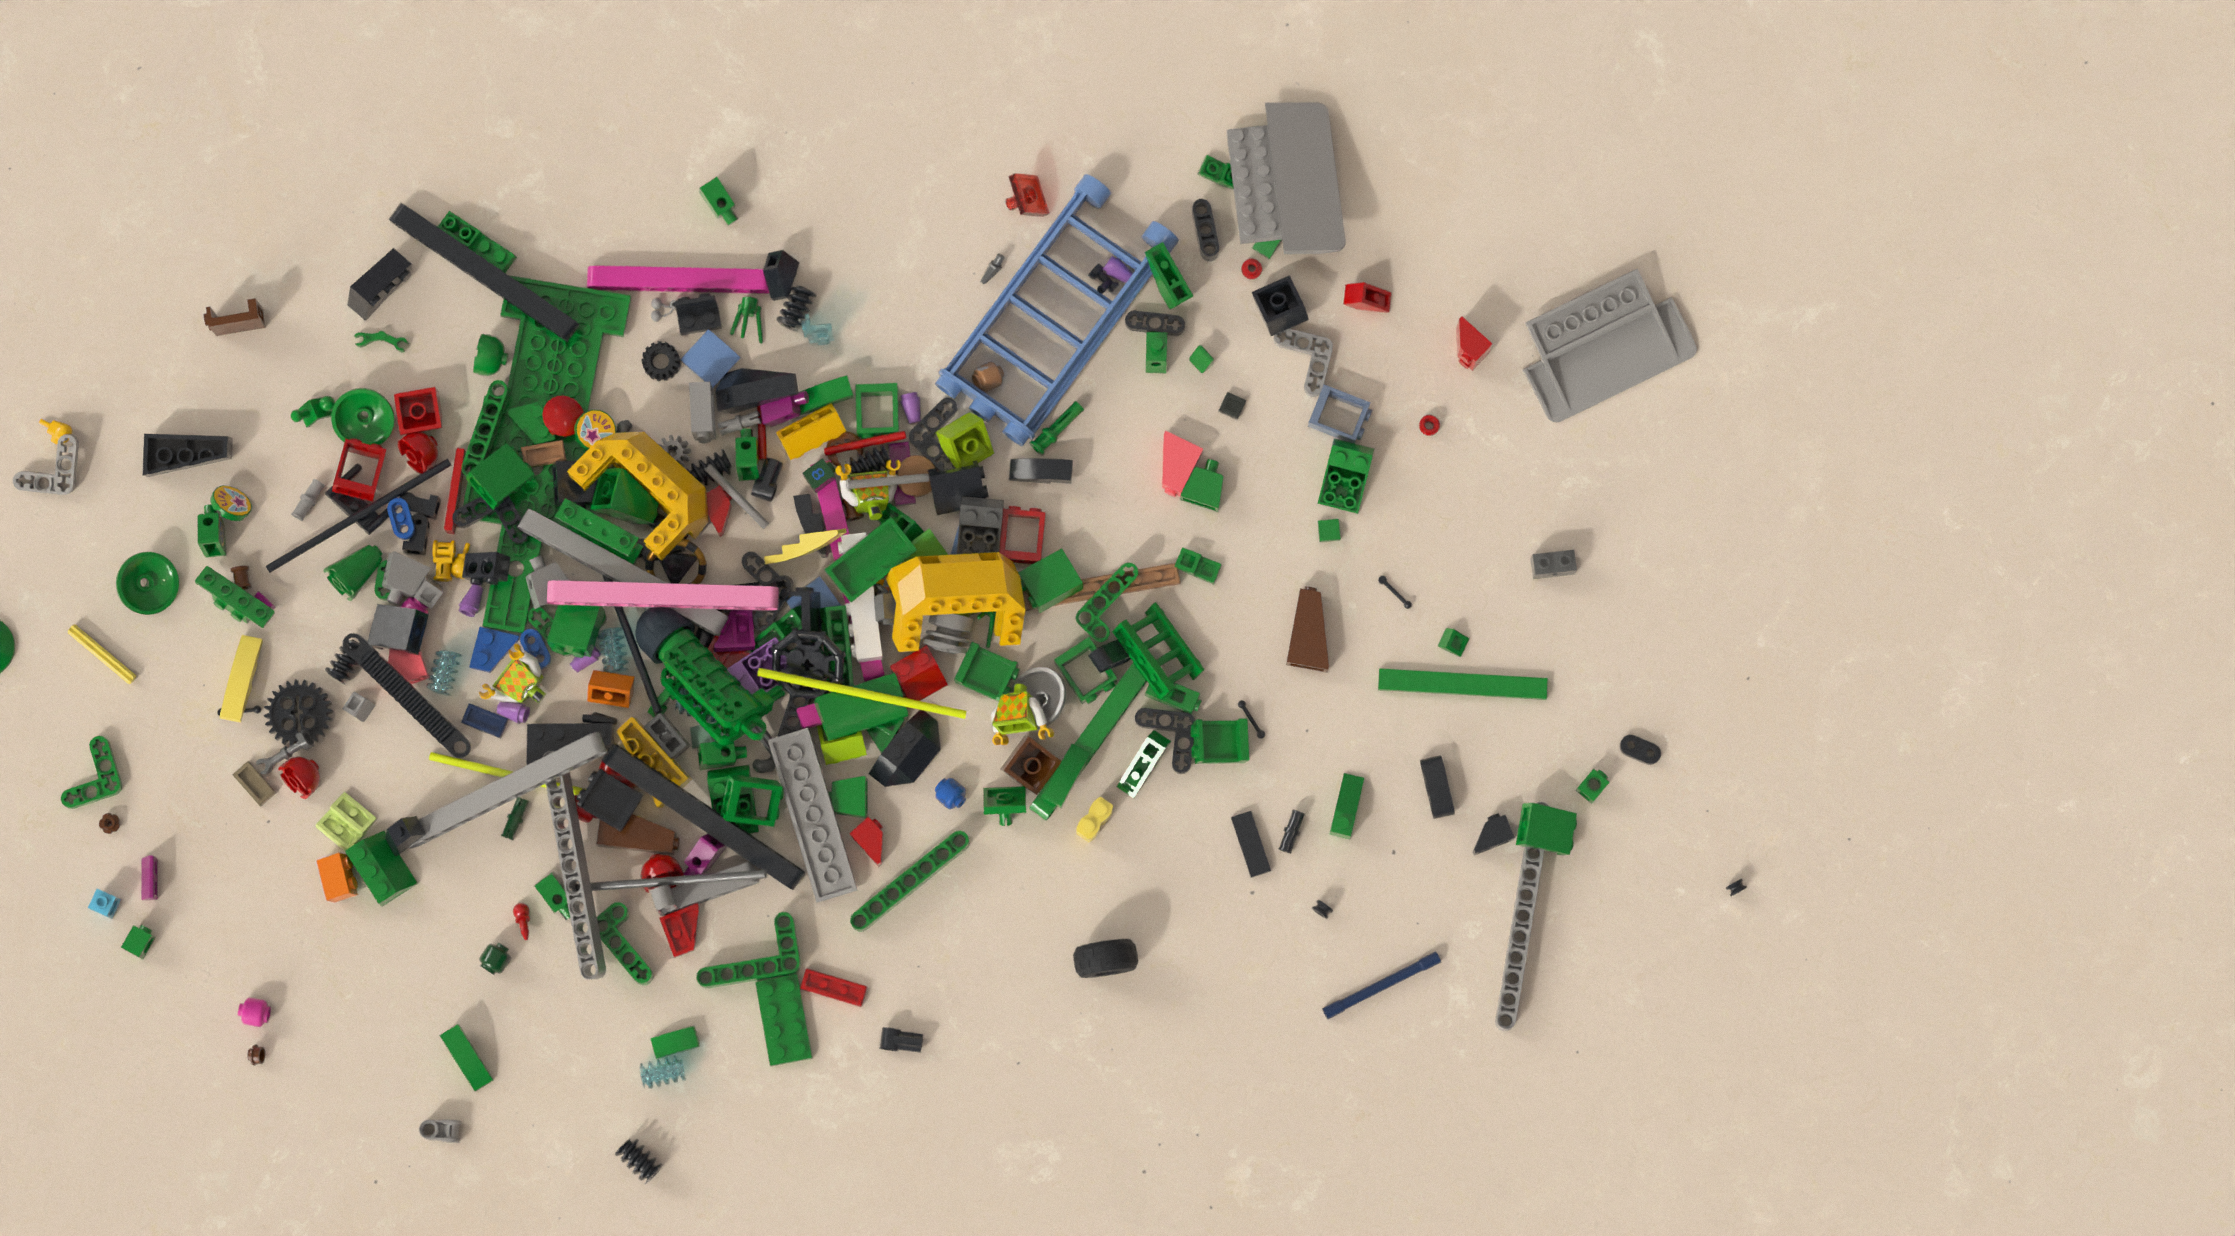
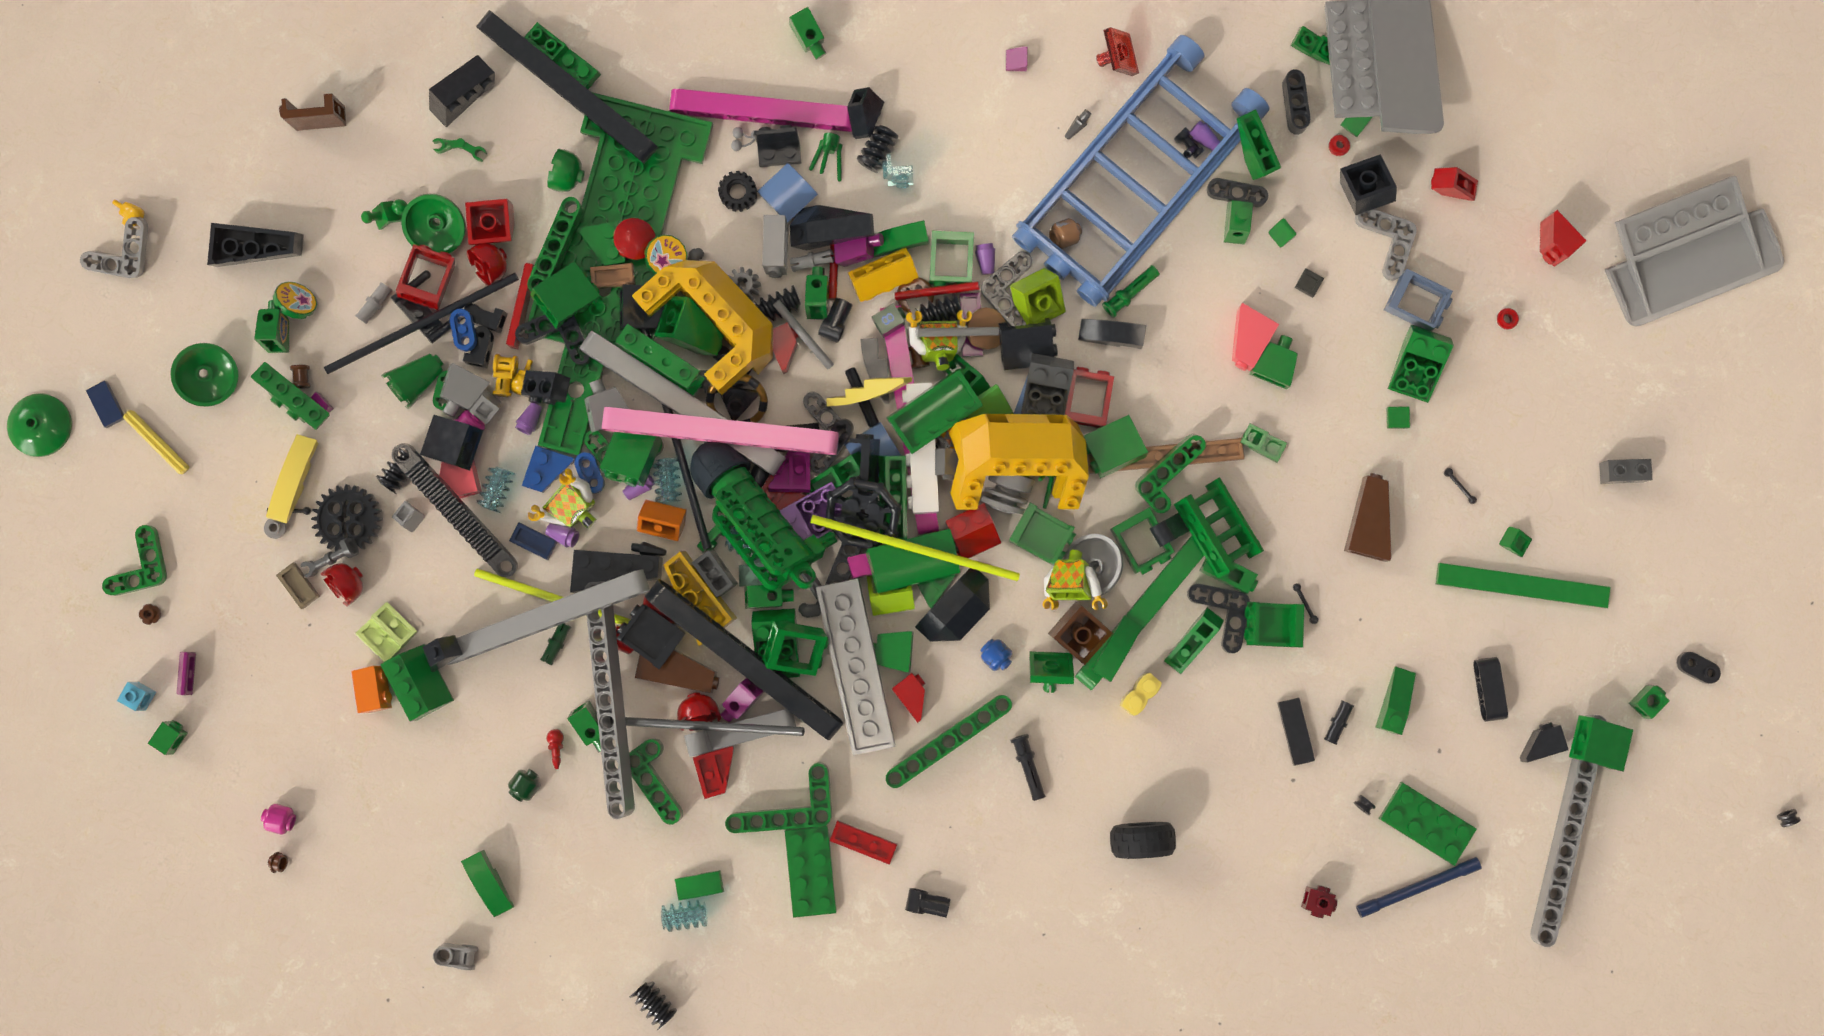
camera: 10 degrees right, 5 degrees up
(48, 621) = (105, 404): none -> dark blue tile
(230, 734) = (281, 529): none -> light grey plate
(803, 561) = (865, 406): none -> black axle
(927, 209) = (1016, 59): none -> slope
(987, 889) = (1026, 757): none -> black pin
(1284, 997) = (1313, 897): none -> dark red brick
(1386, 923) = (1427, 823): none -> green plate

